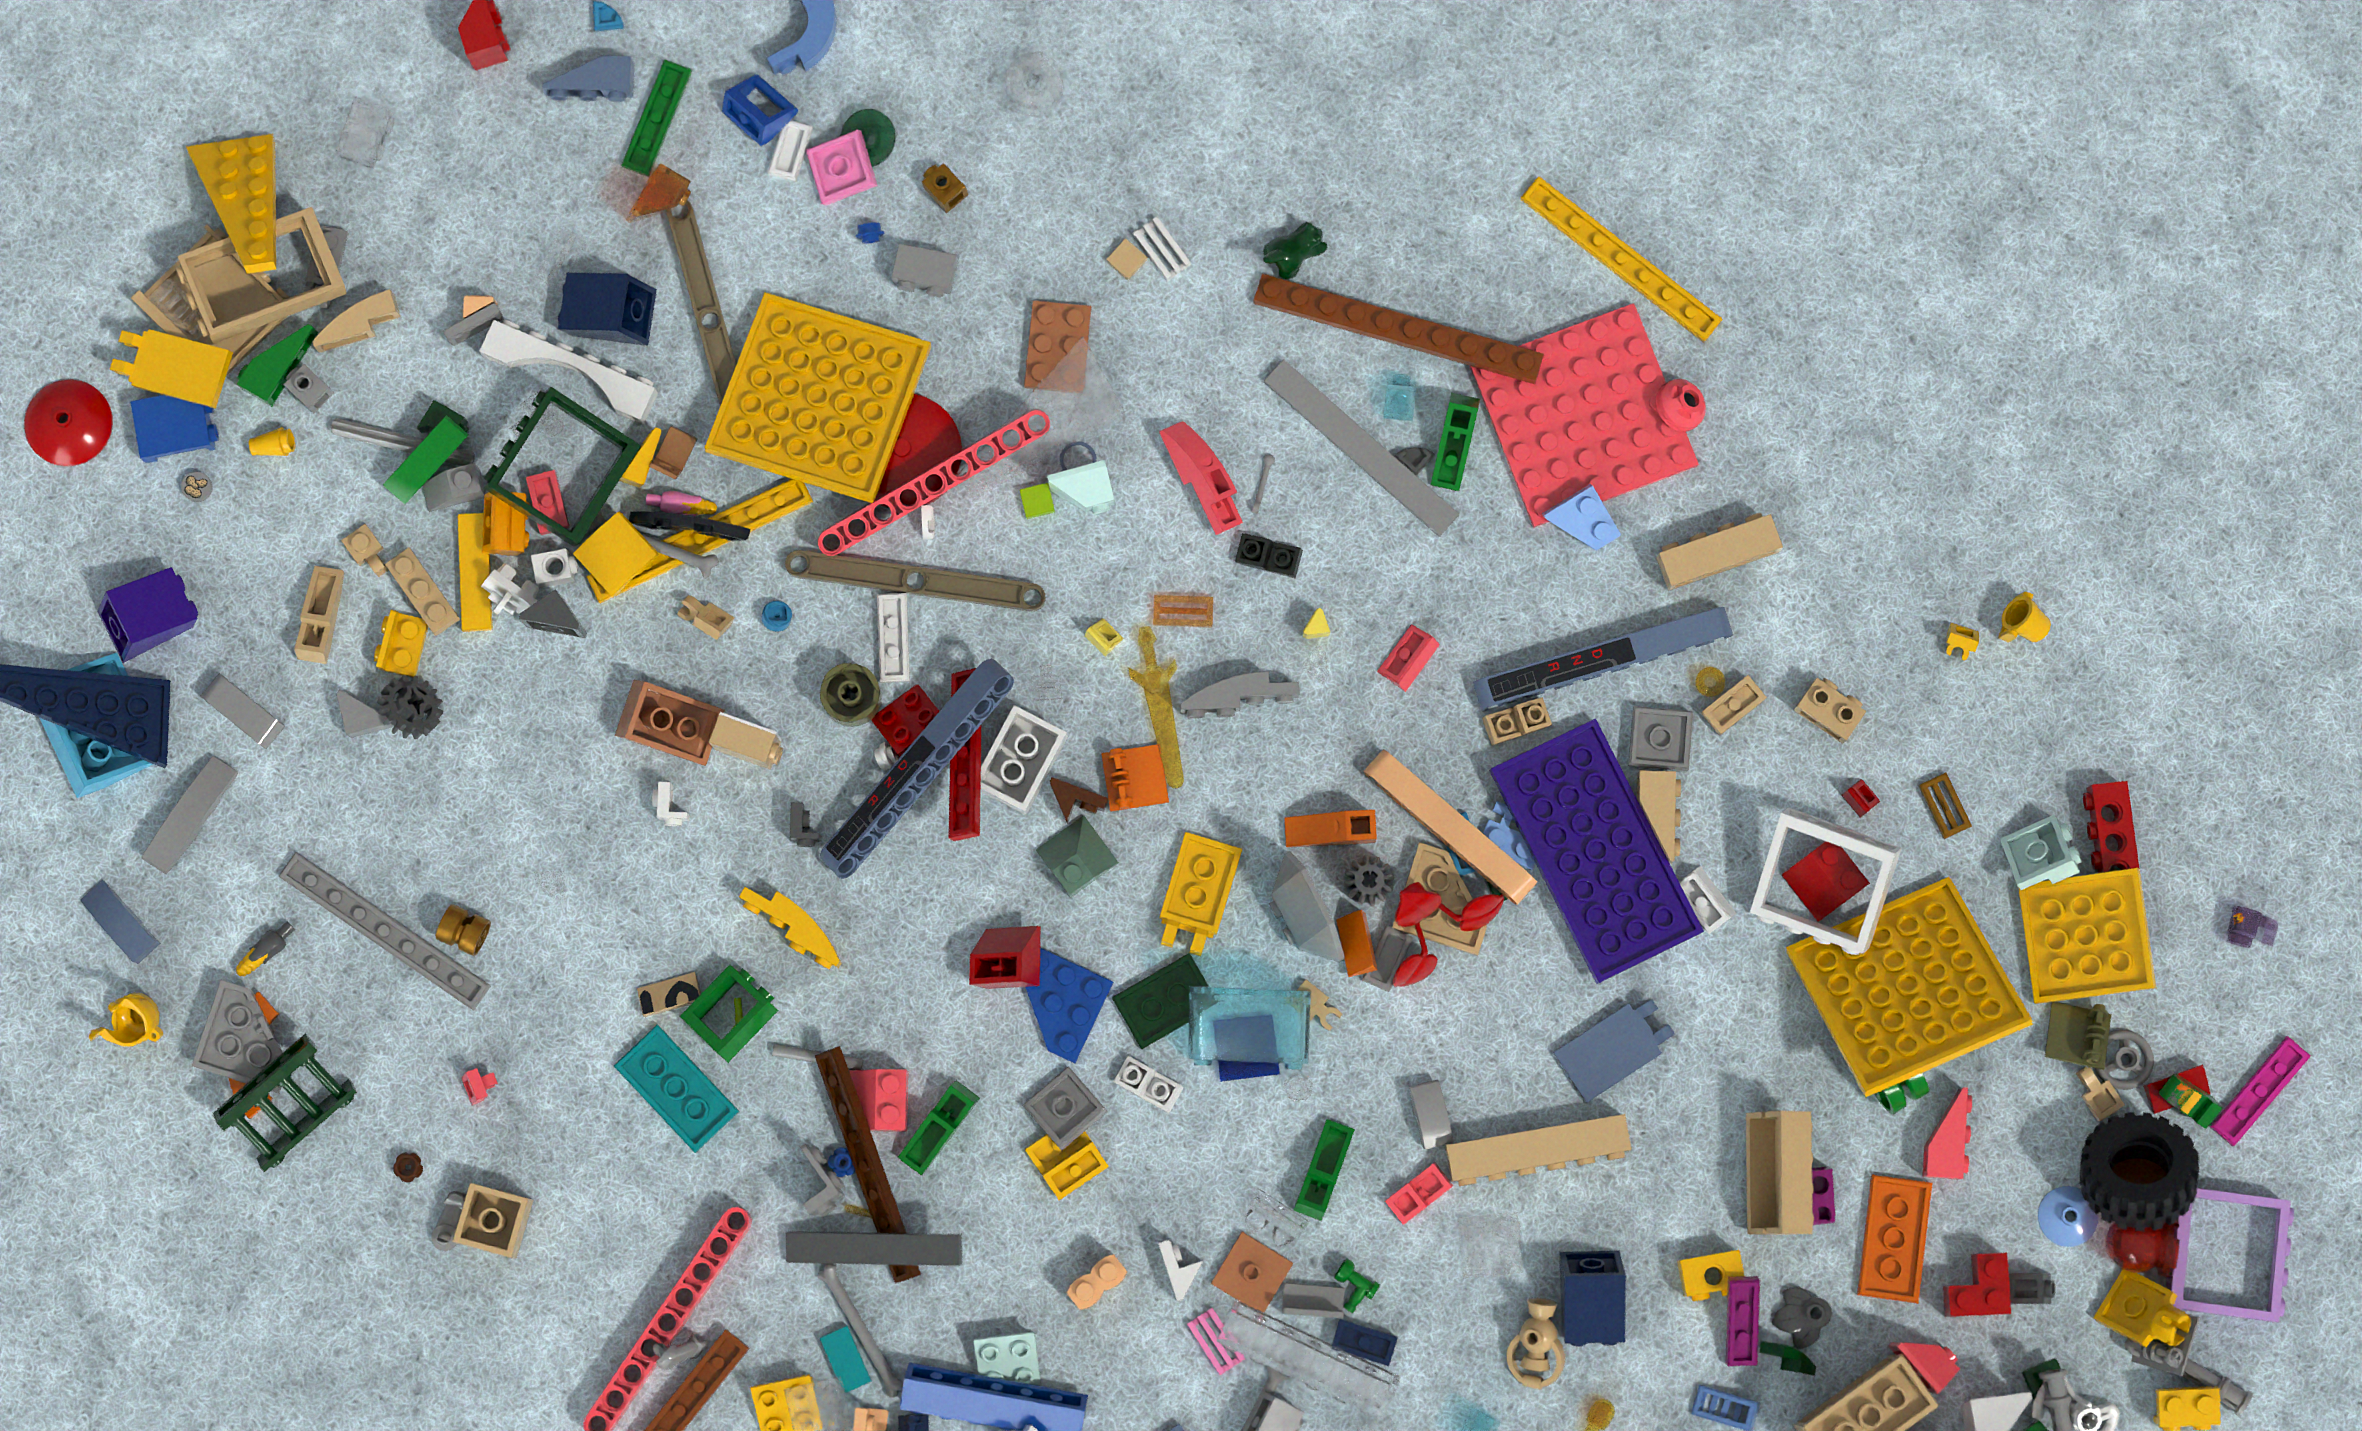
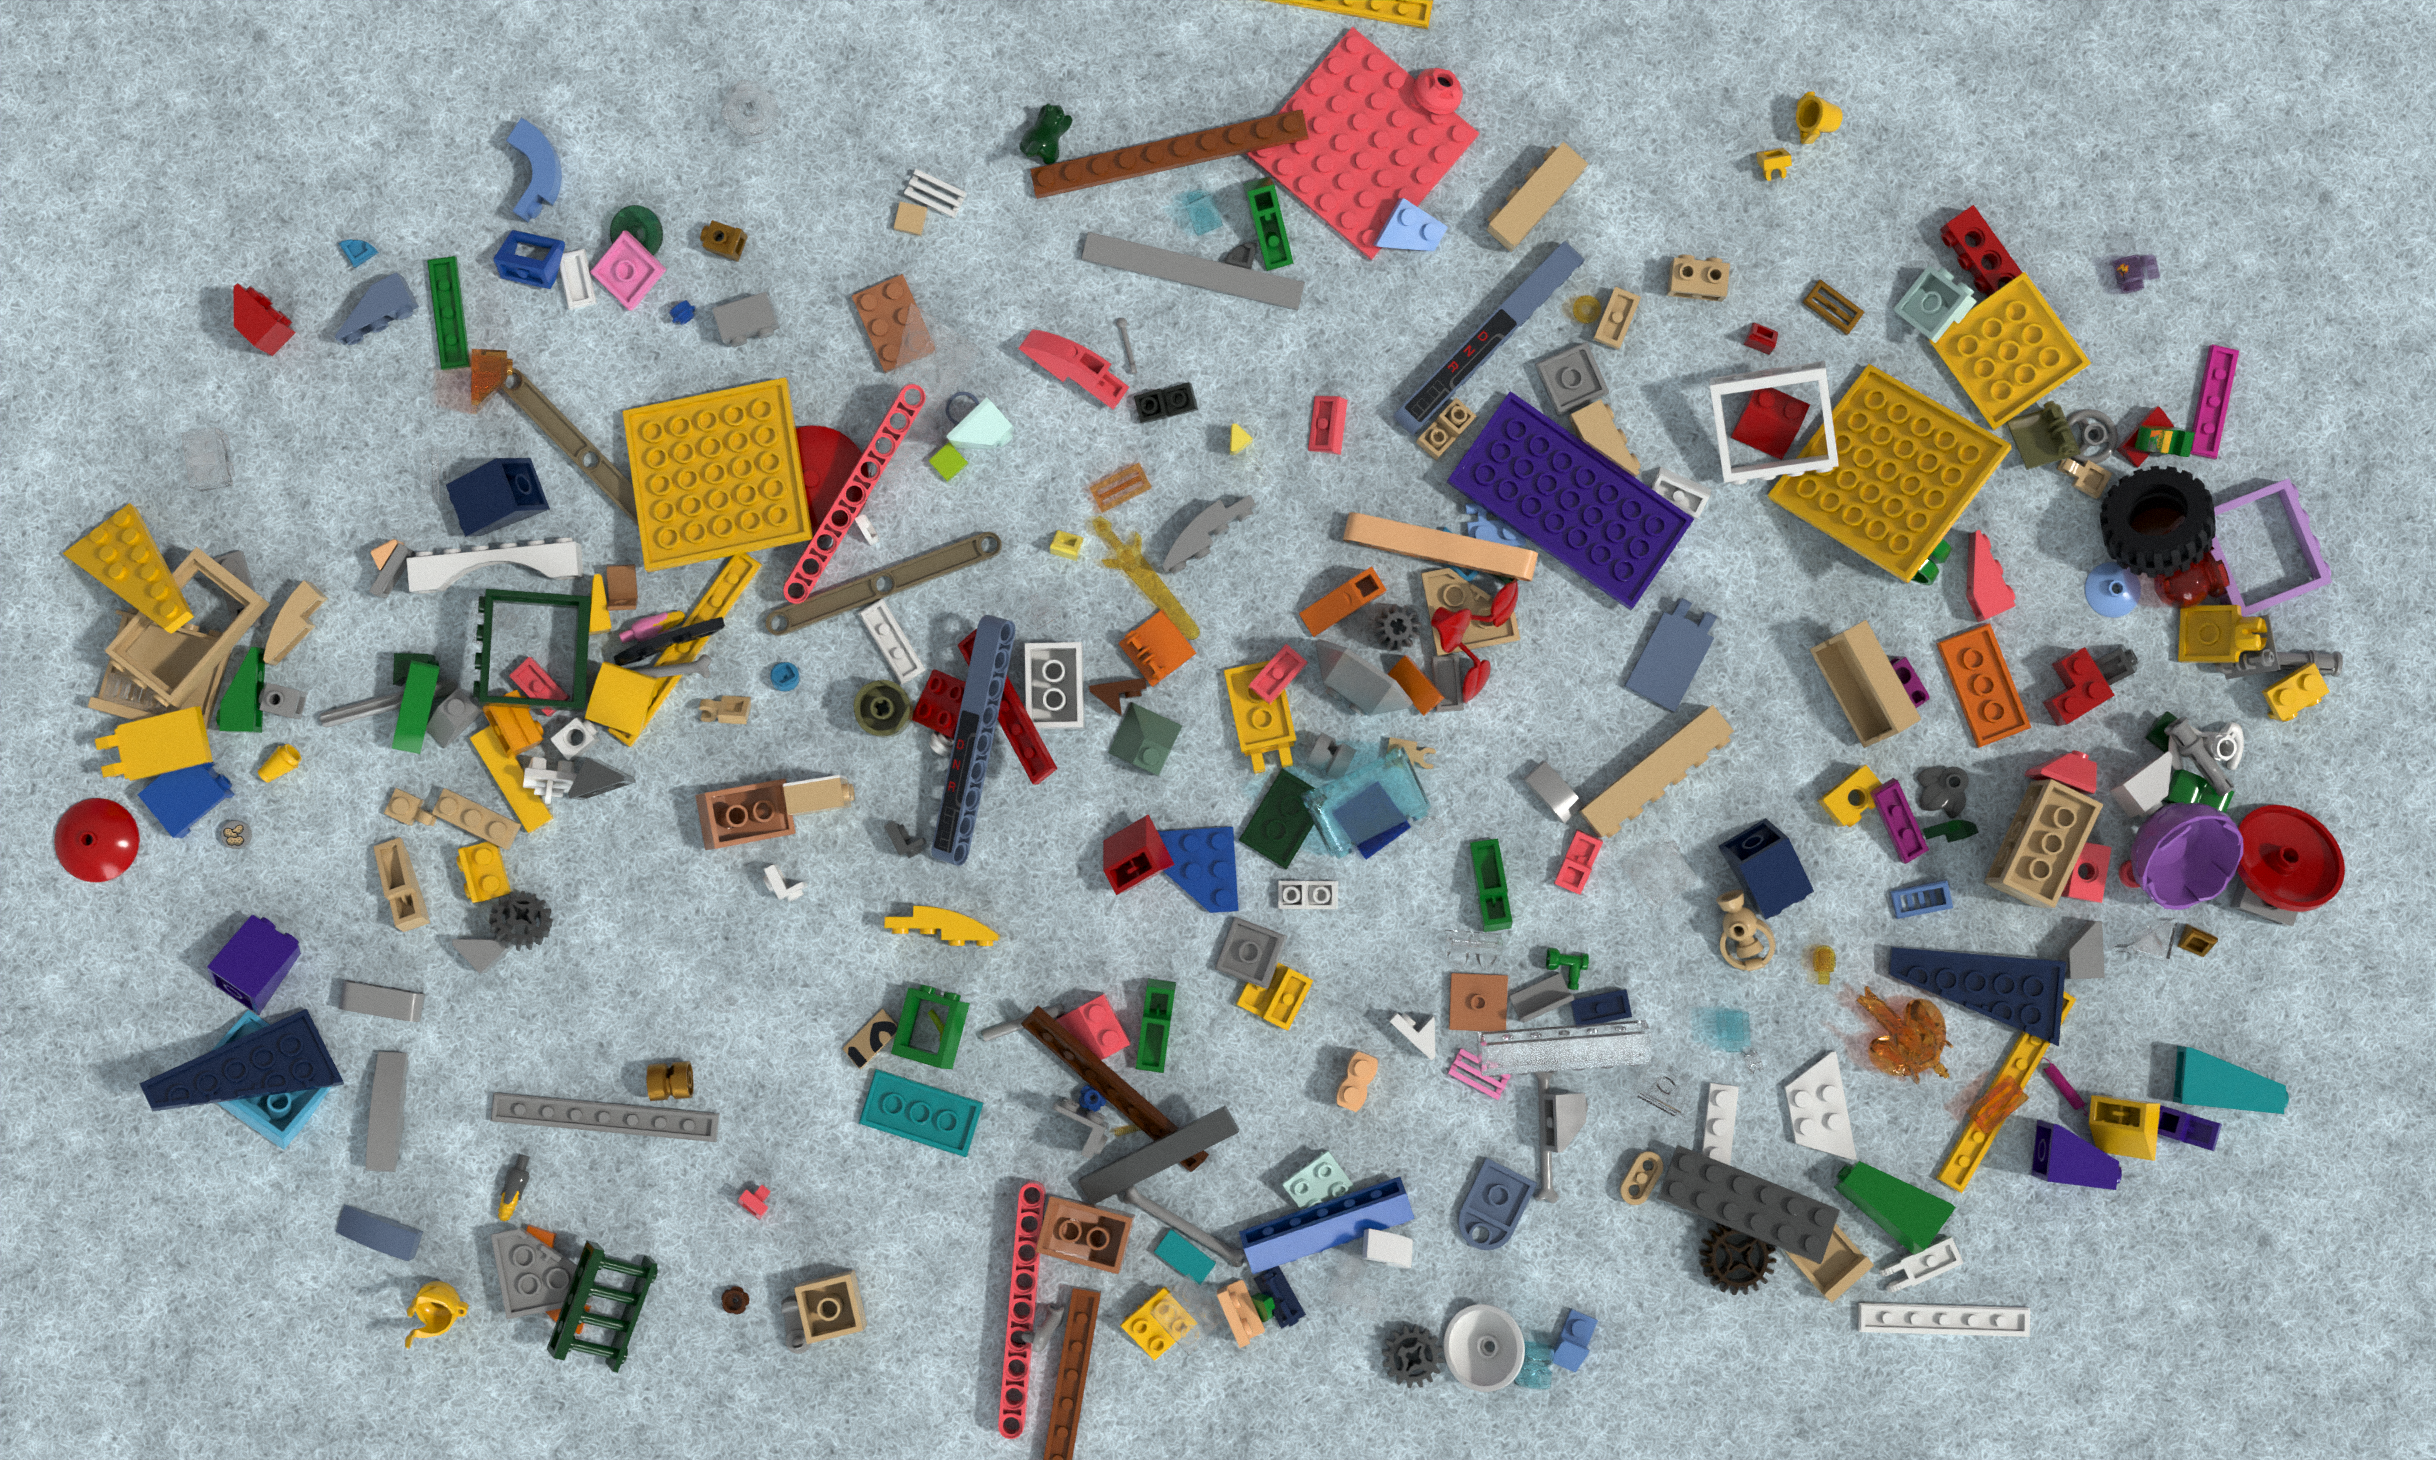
camera: 30 degrees left, 5 degrees up
(765, 1284) = (1085, 1234): none -> nougat slope
(1233, 862) = (1278, 674): none -> coral plate
(1240, 966) = (1330, 756): none -> light grey wheel

